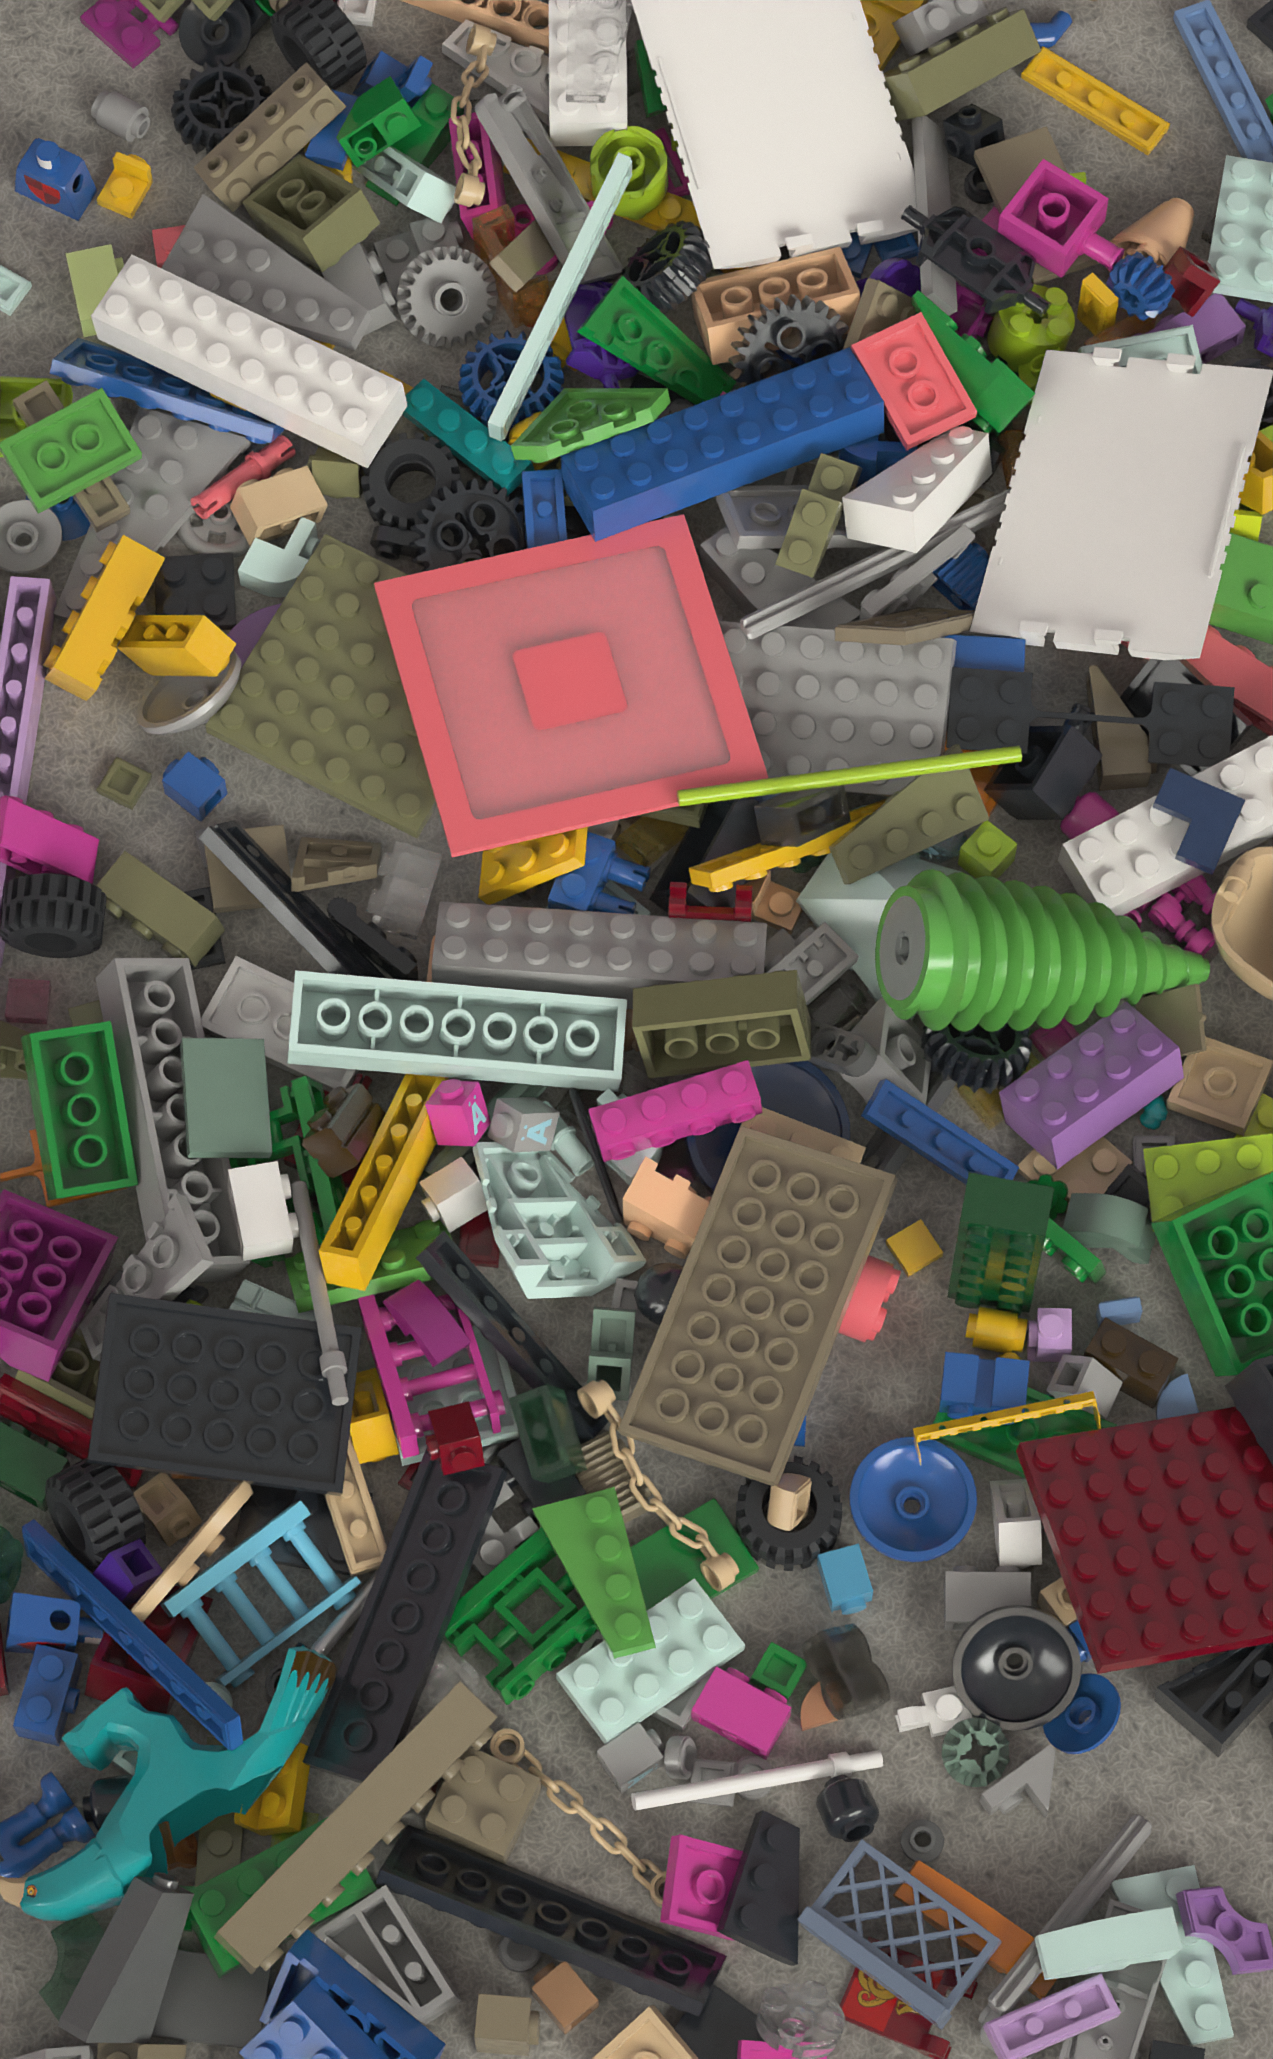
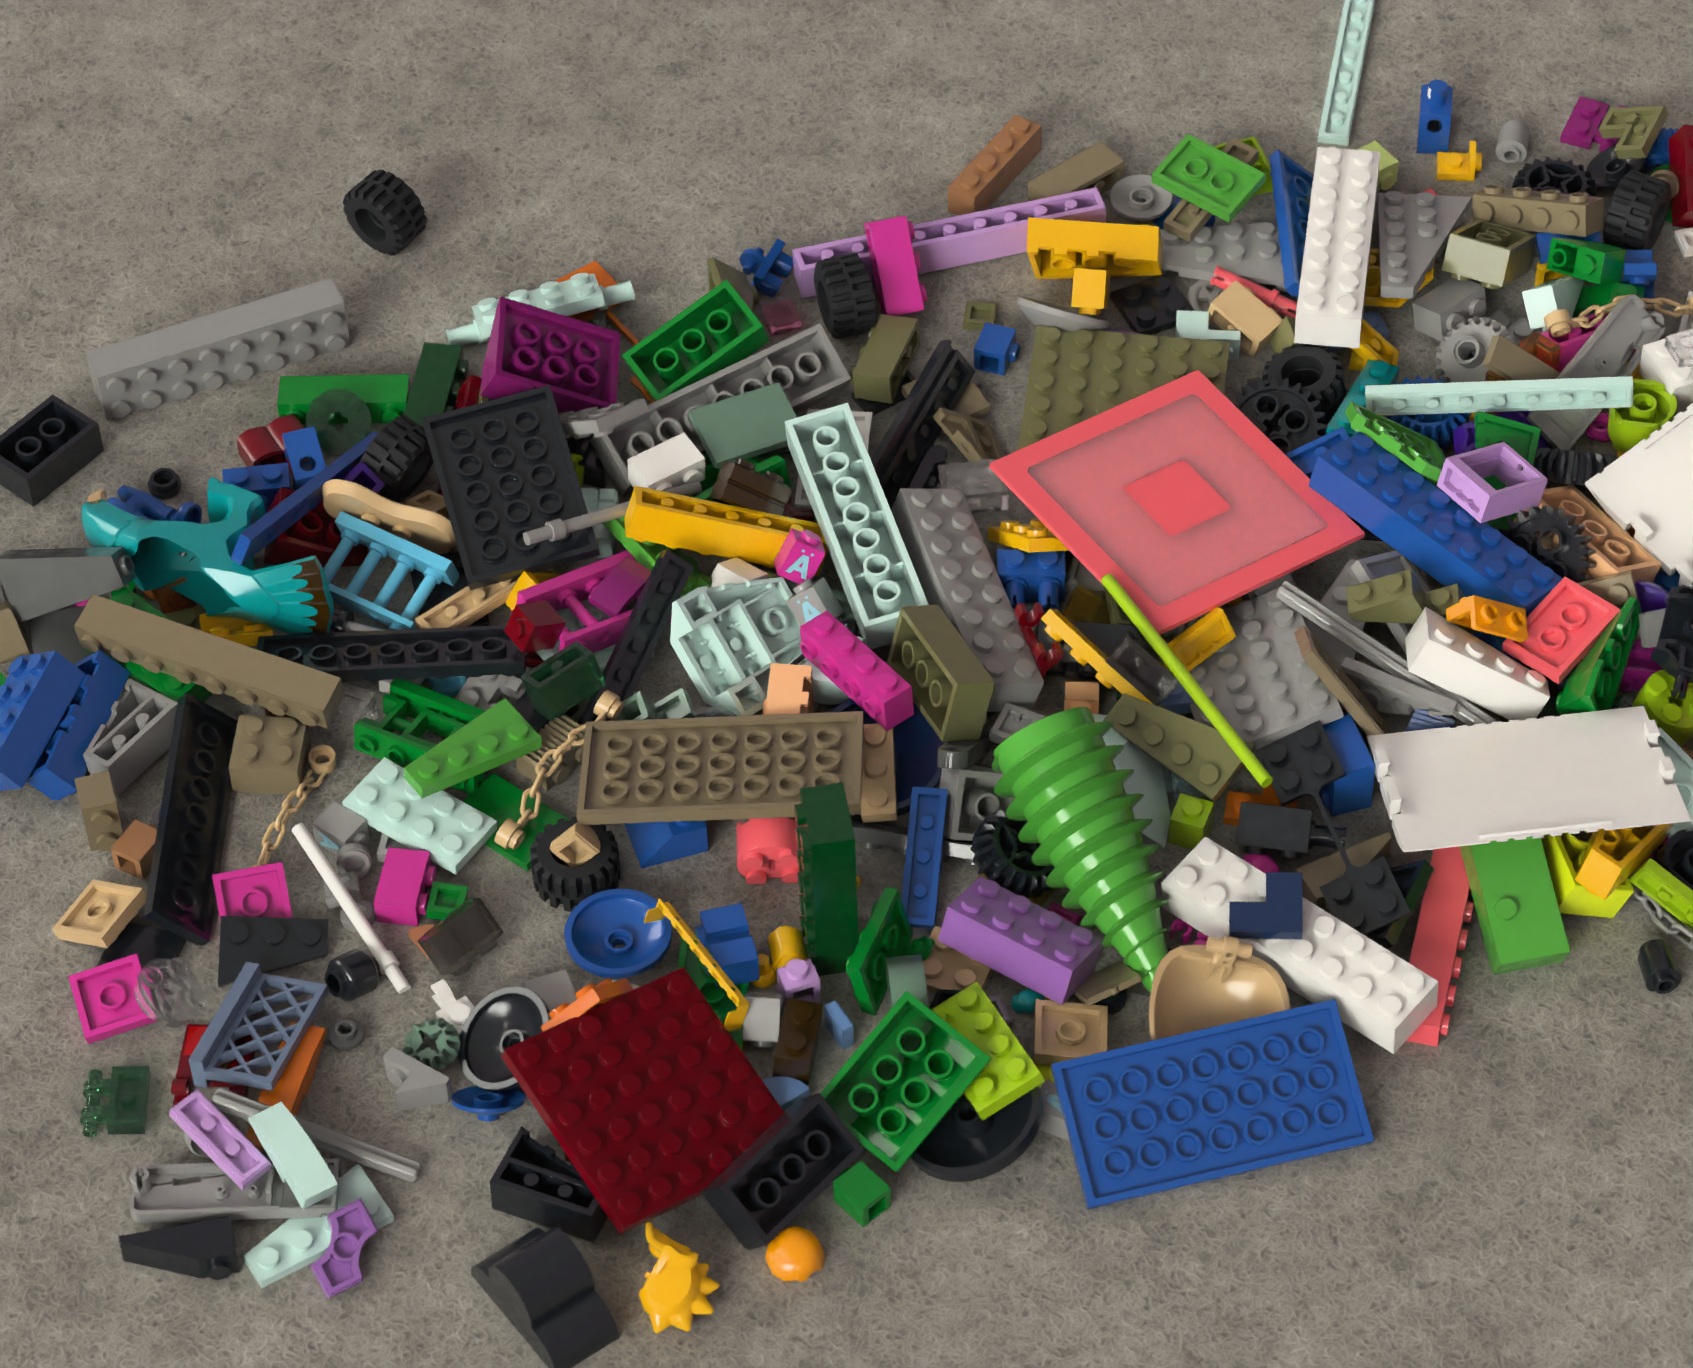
camera: 70 degrees right, 20 degrees down
(706, 382) = (1464, 482): none -> lavender window
(770, 738) = (1203, 639): none -> yellow plate
(845, 1579) = (538, 917): dark azure brick -> none
(893, 434) = (1489, 617): none -> light orange bracket
(1052, 1560) = (587, 999): none -> orange plate

